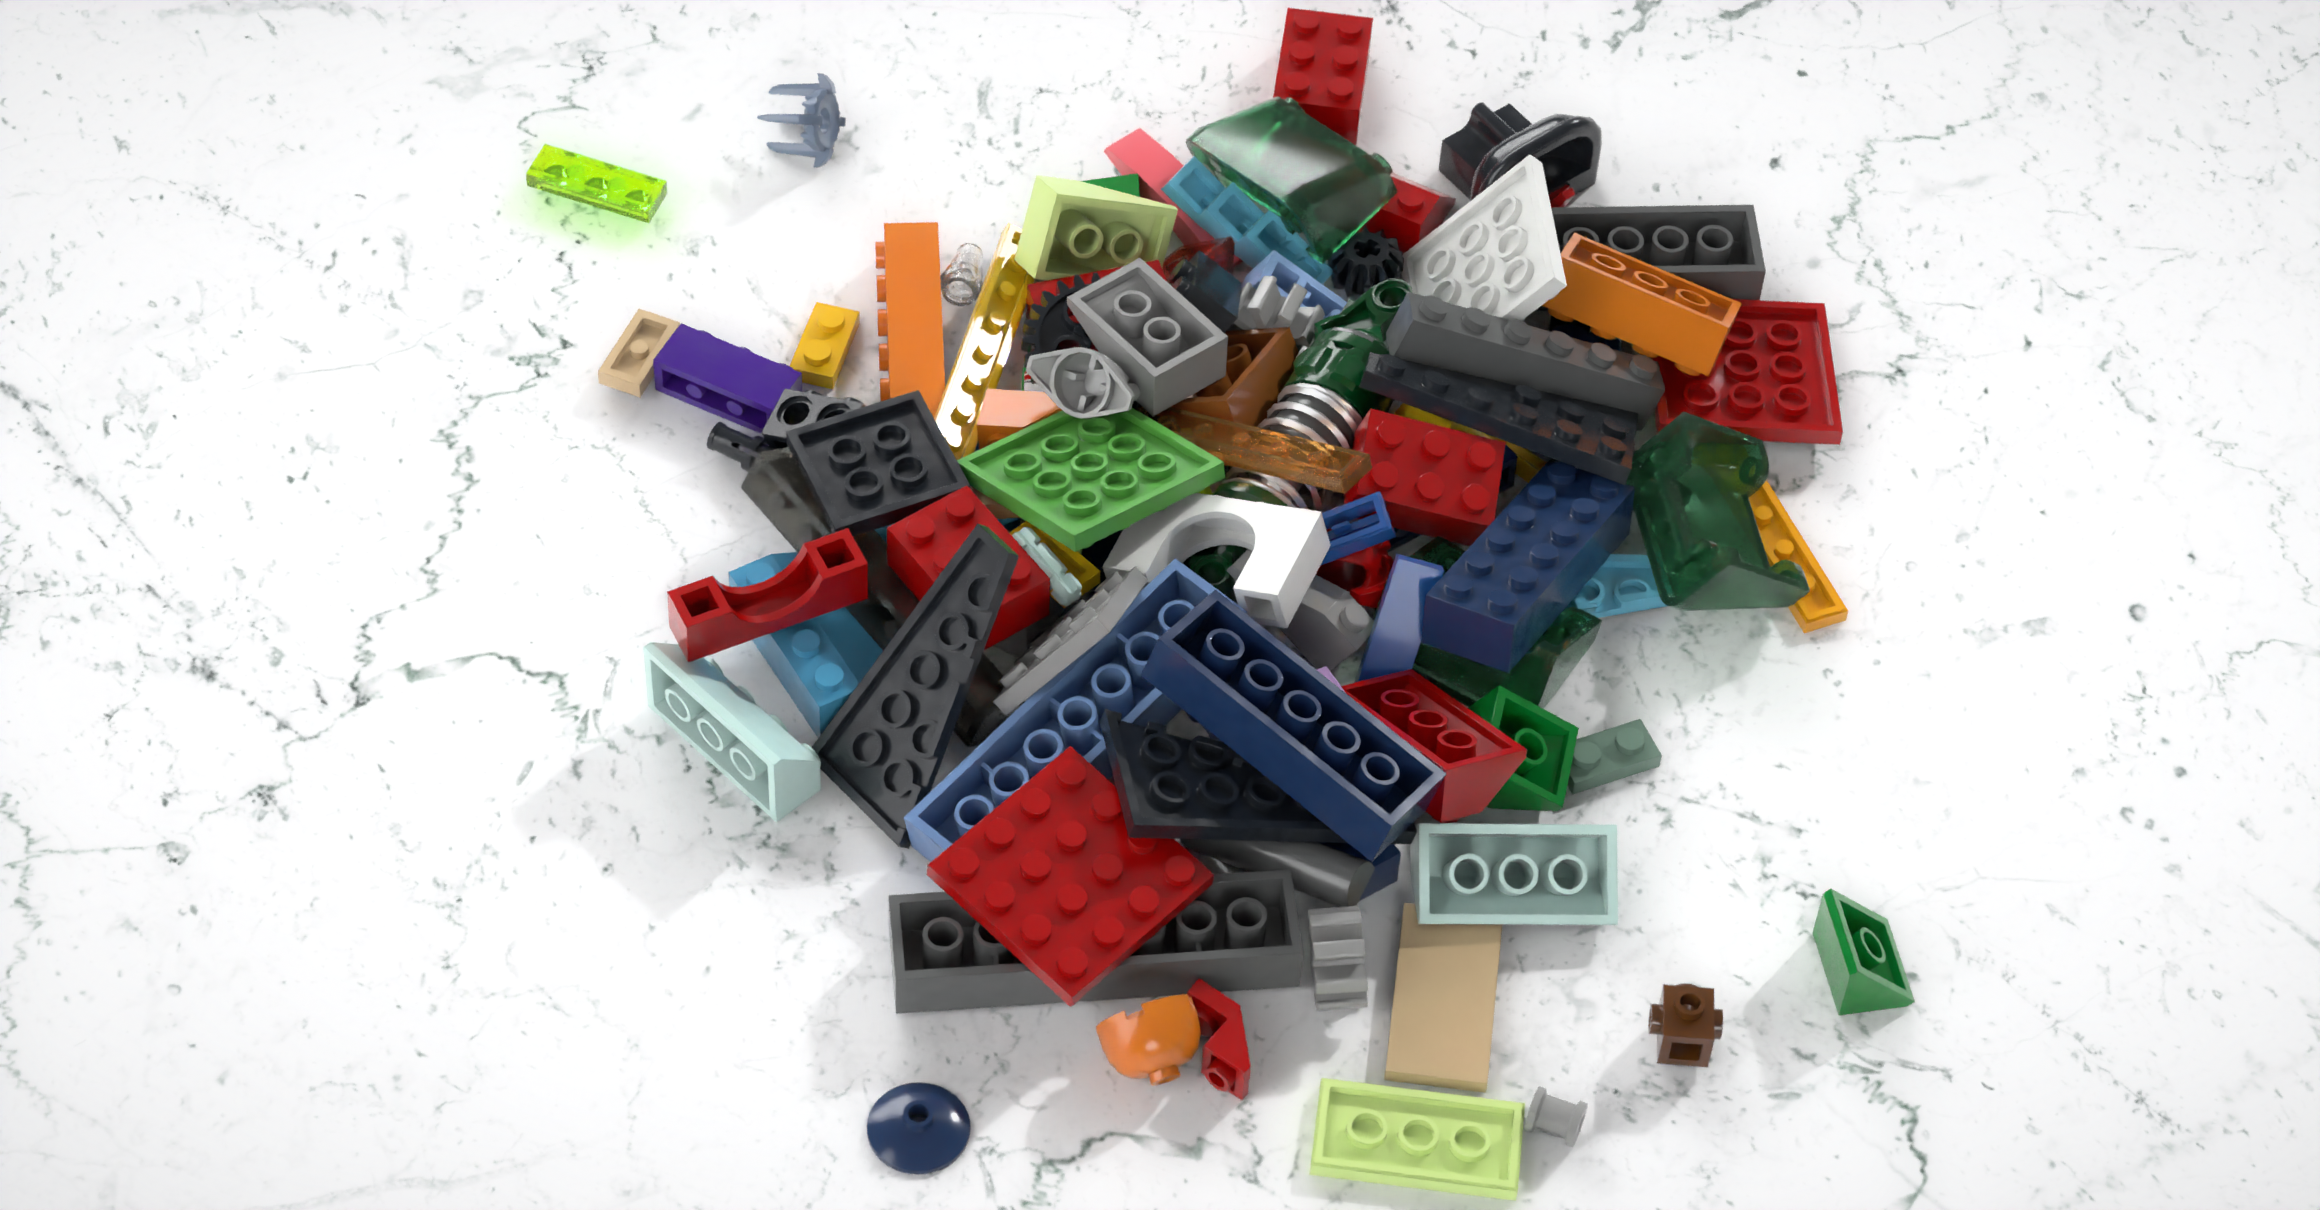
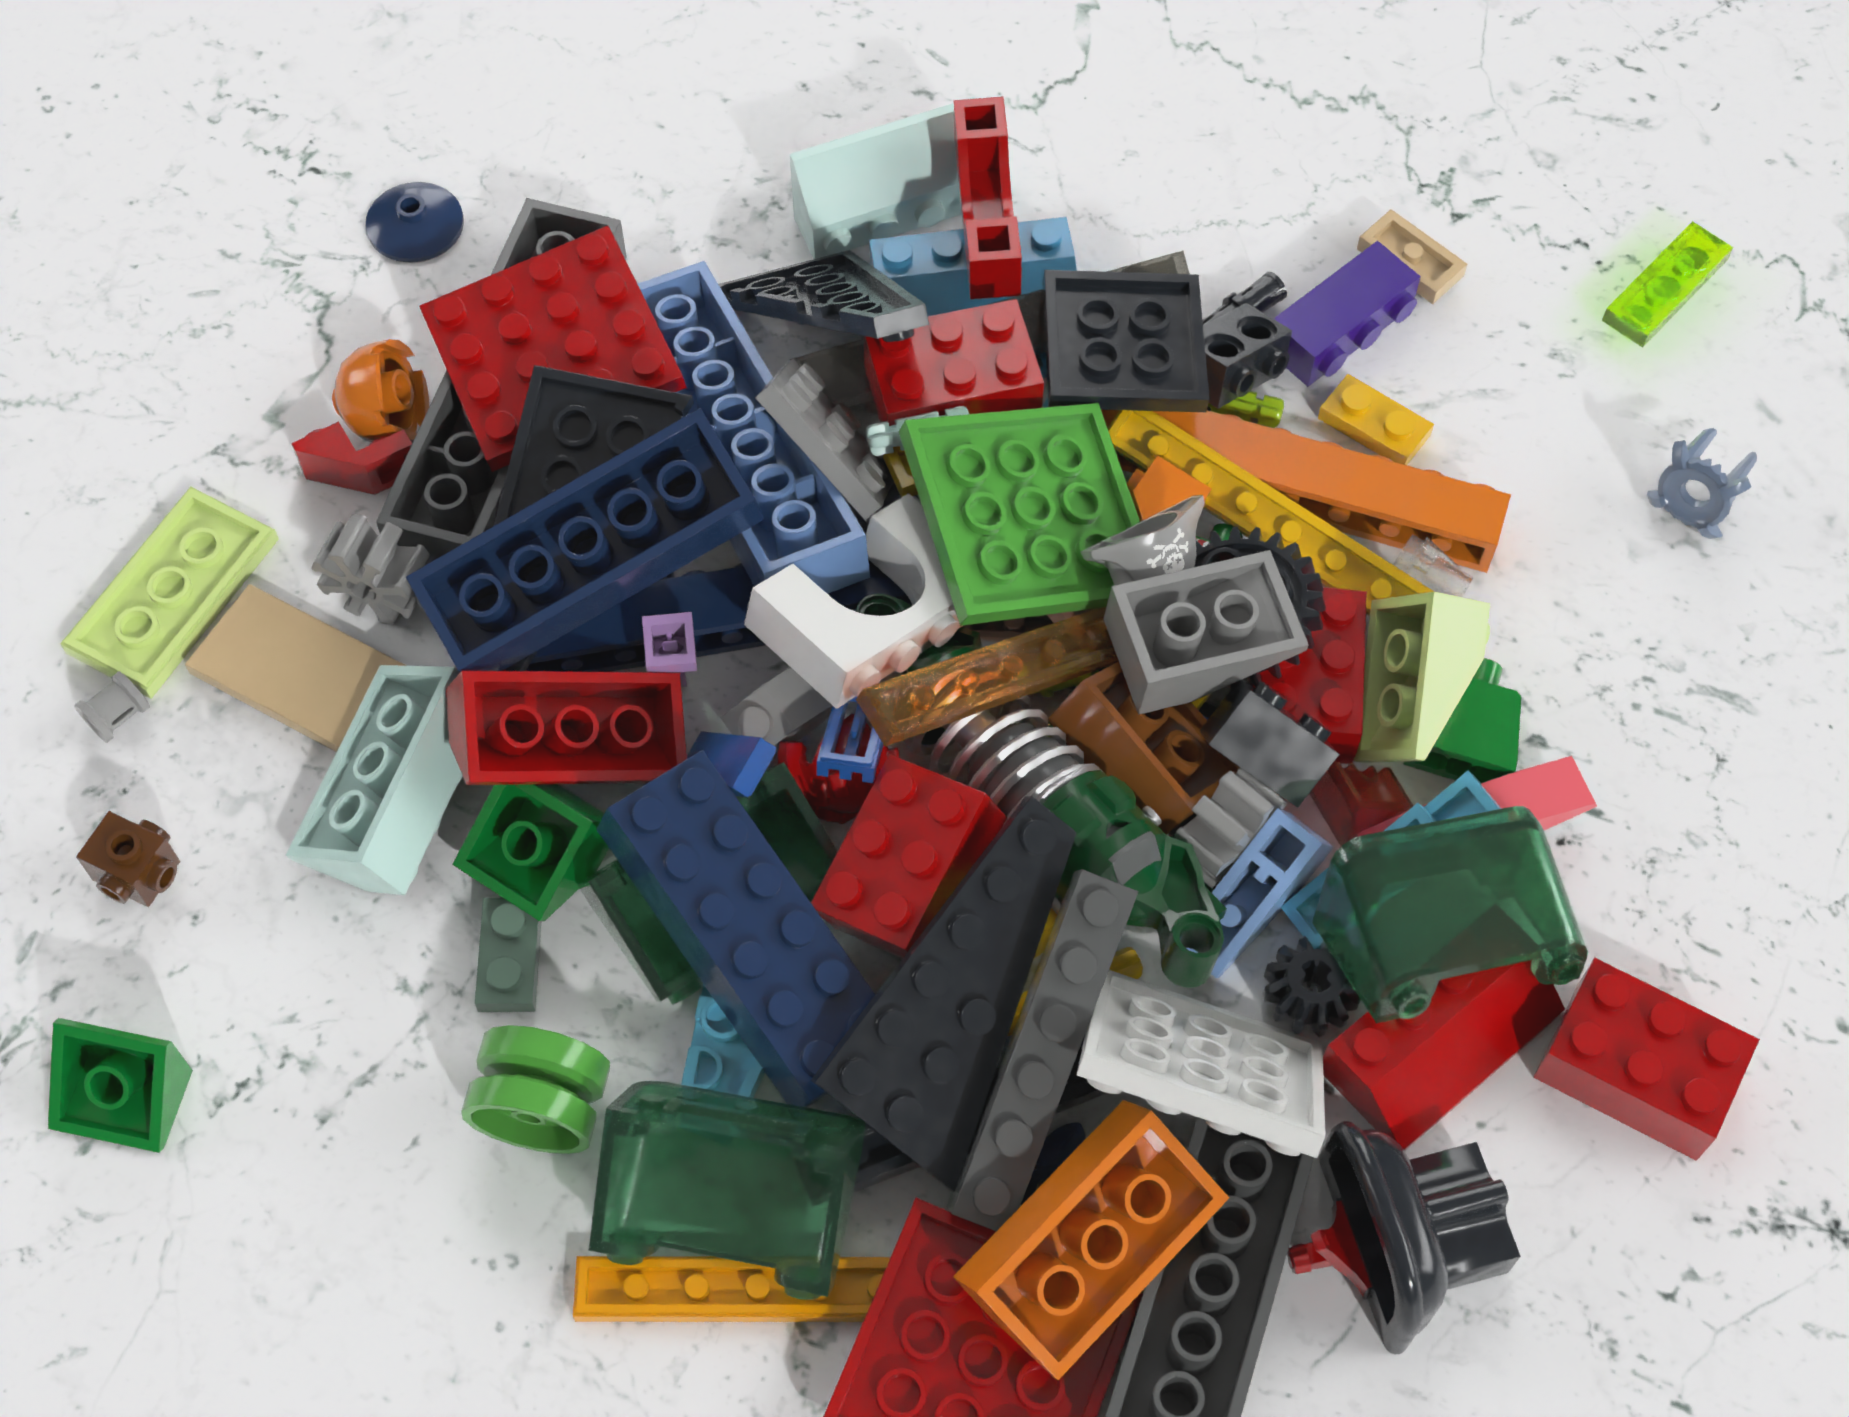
camera: 115 degrees right, 10 degrees up
(1717, 662) = (536, 1089): none -> bright green wheel

